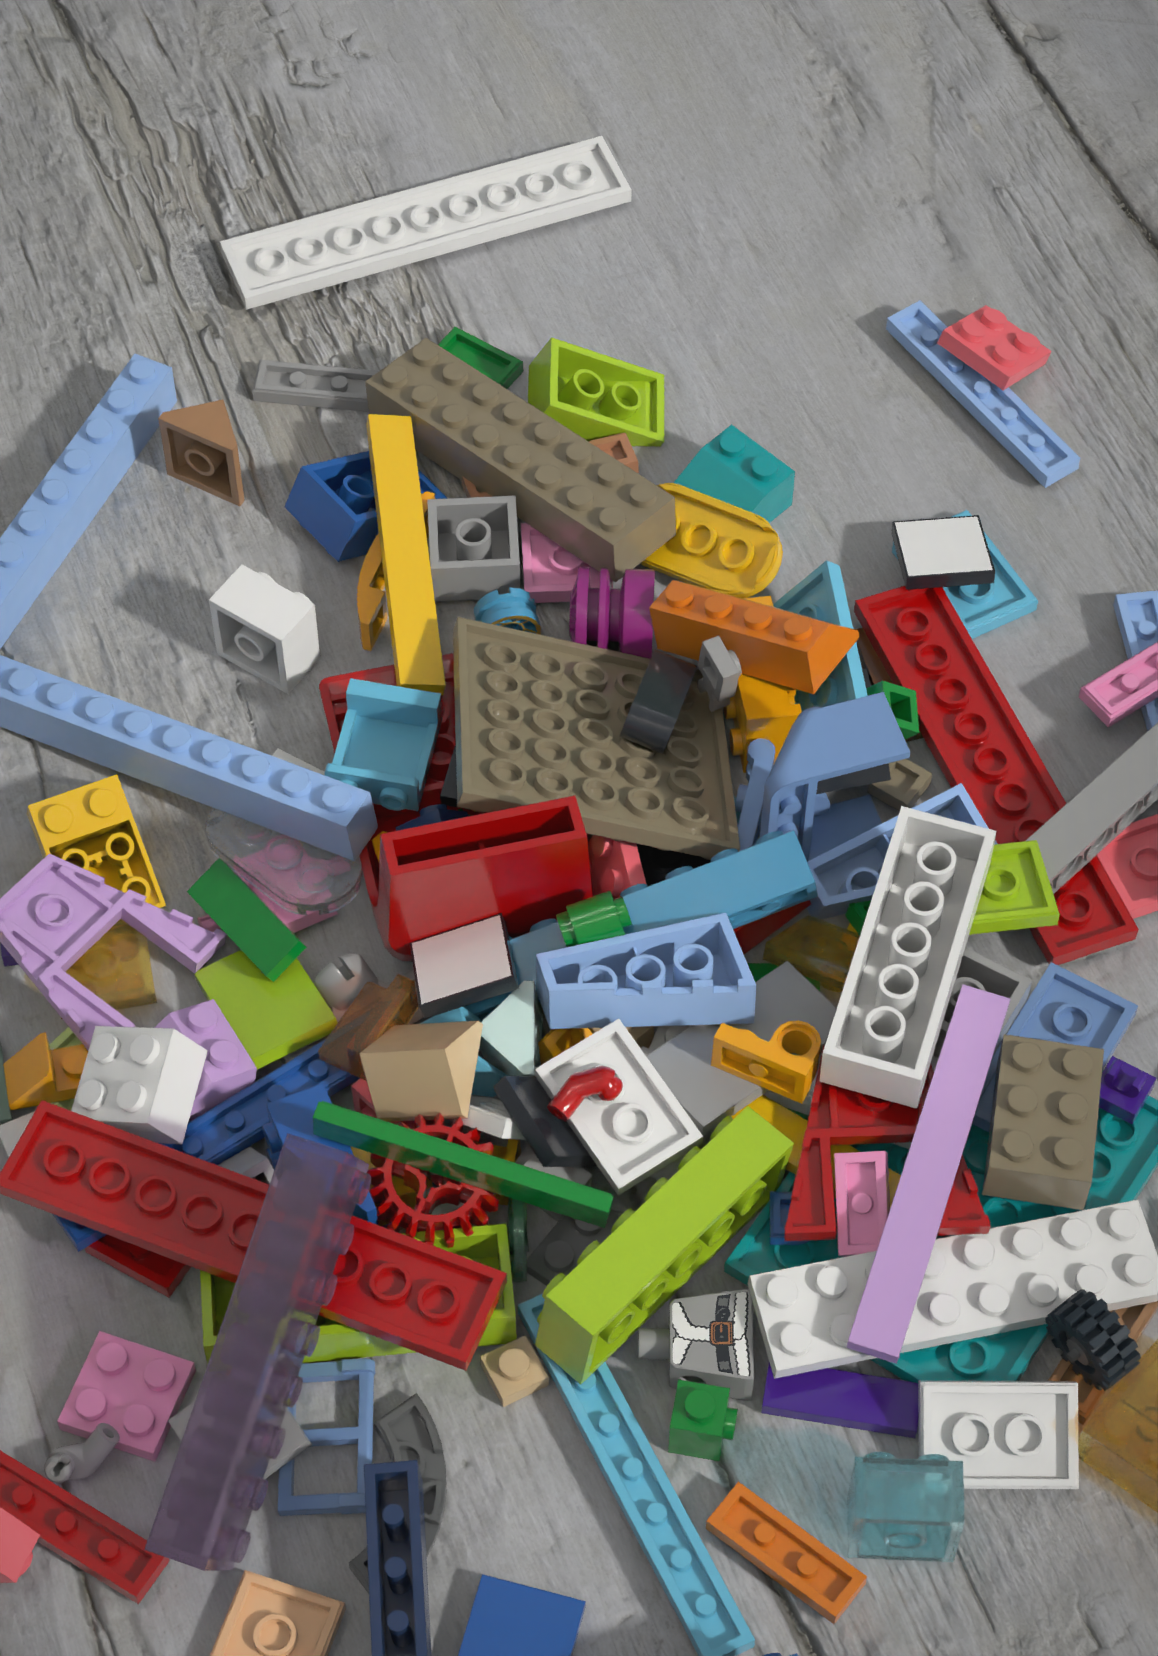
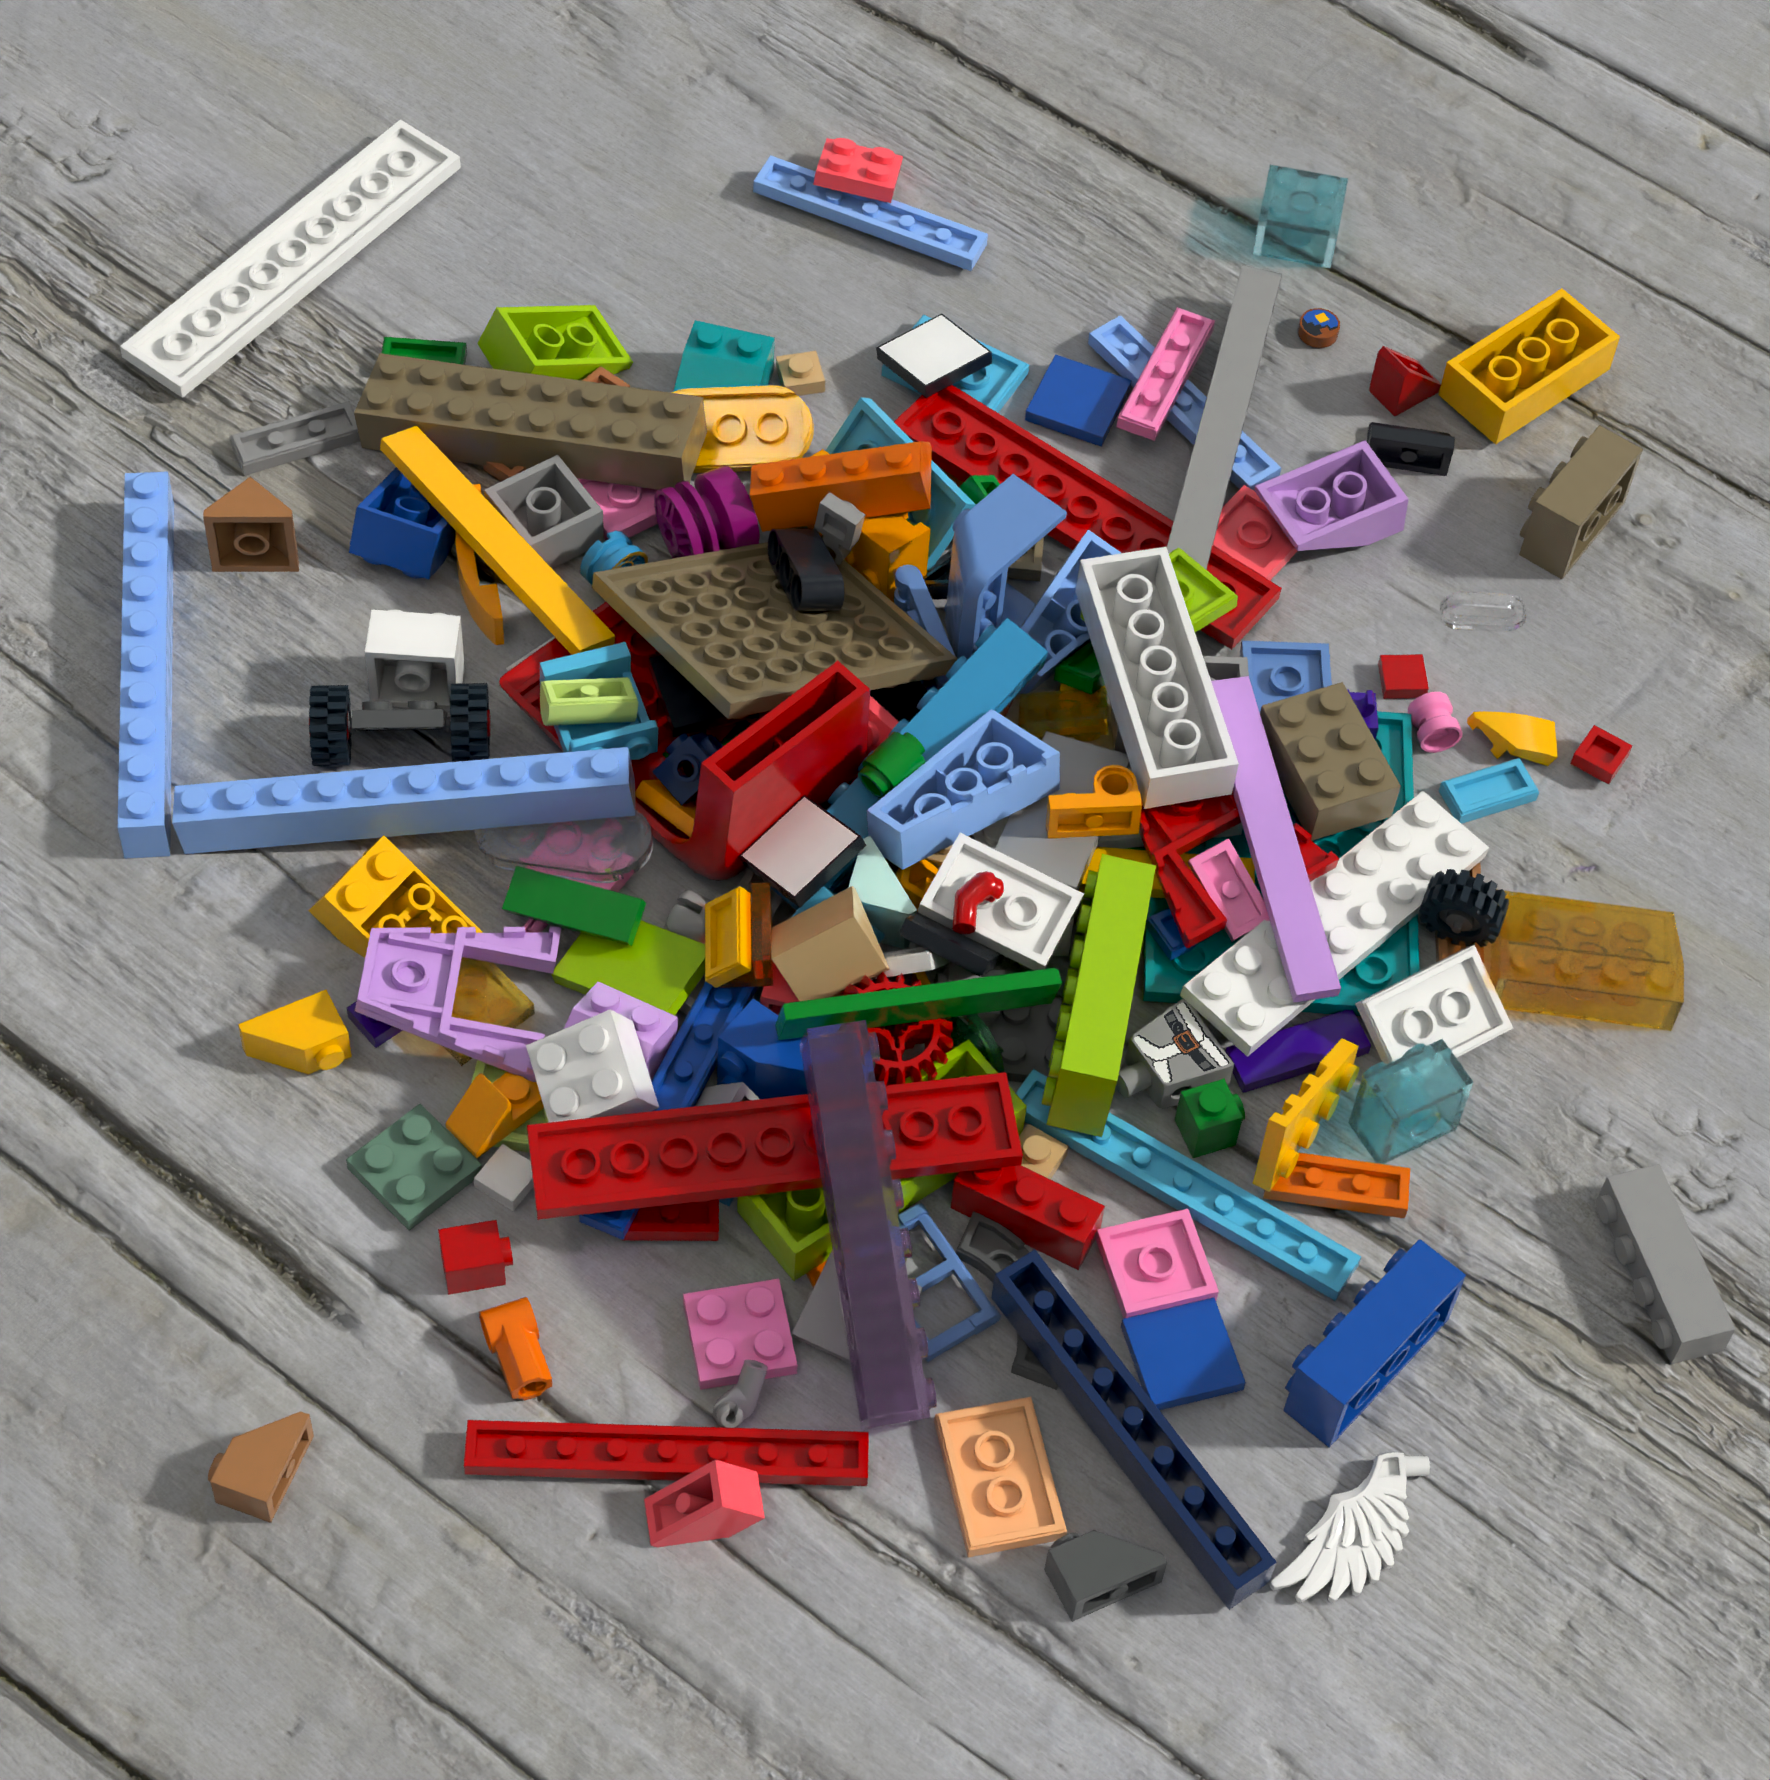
camera: 35 degrees left, 0 degrees up
(270, 700) = (332, 722): none -> black plate
(346, 1014) = (728, 937): none -> yellow tile
(372, 734) = (588, 701): none -> yellowish green brick
(468, 1424) = (1033, 1209): none -> red brick
(552, 1537) = (1156, 1263): none -> bright pink plate
(774, 1471) = (1302, 1112): none -> yellow wing
(811, 517) = (801, 373): none -> tan plate
(1062, 654) = (1078, 400): none -> blue tile

